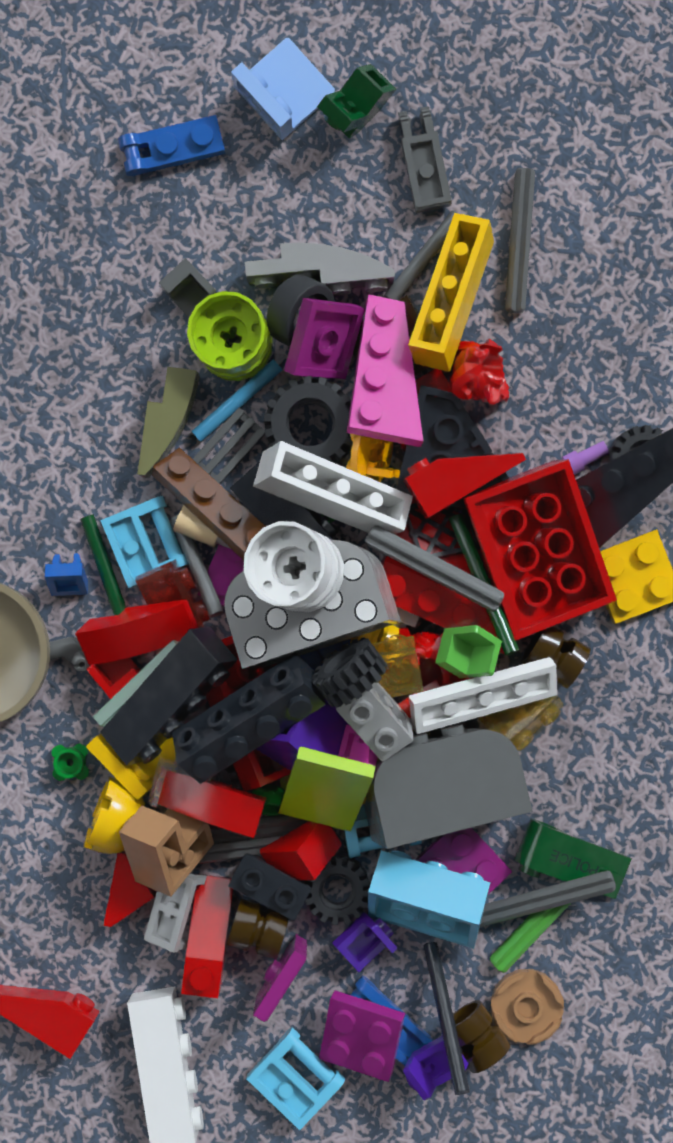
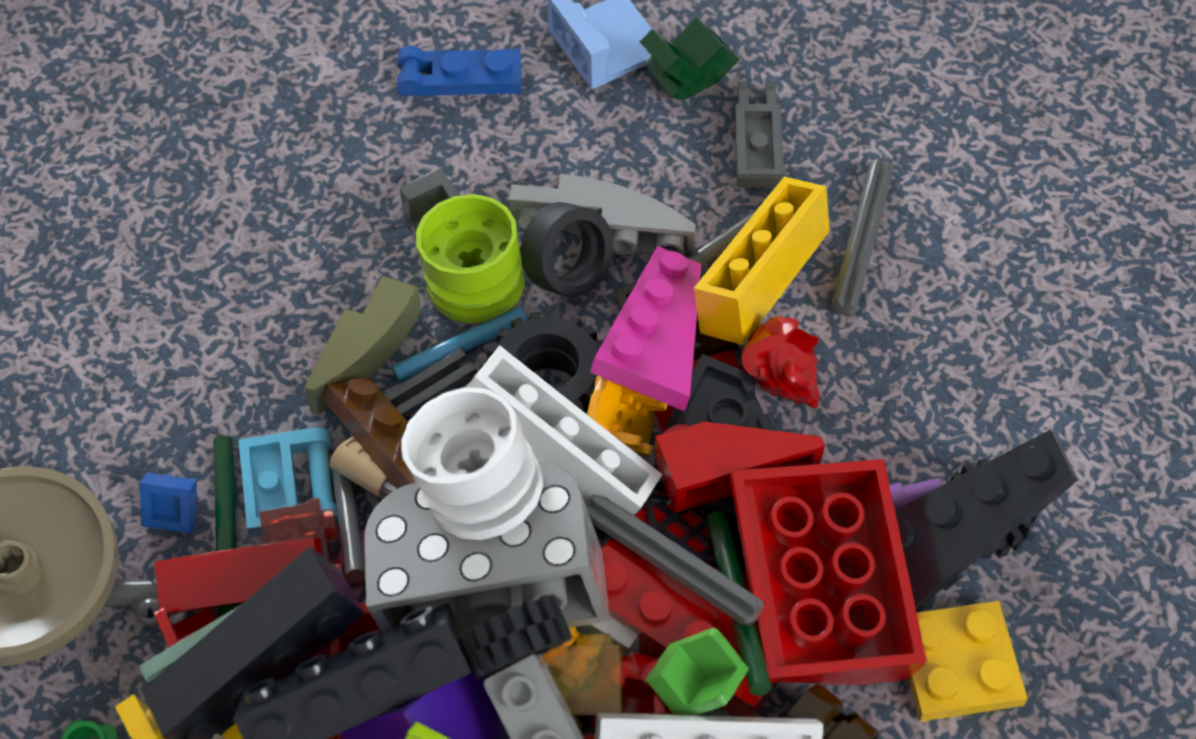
camera: 15 degrees right, 30 degrees down
(324, 339) = (588, 275): magenta plate -> none

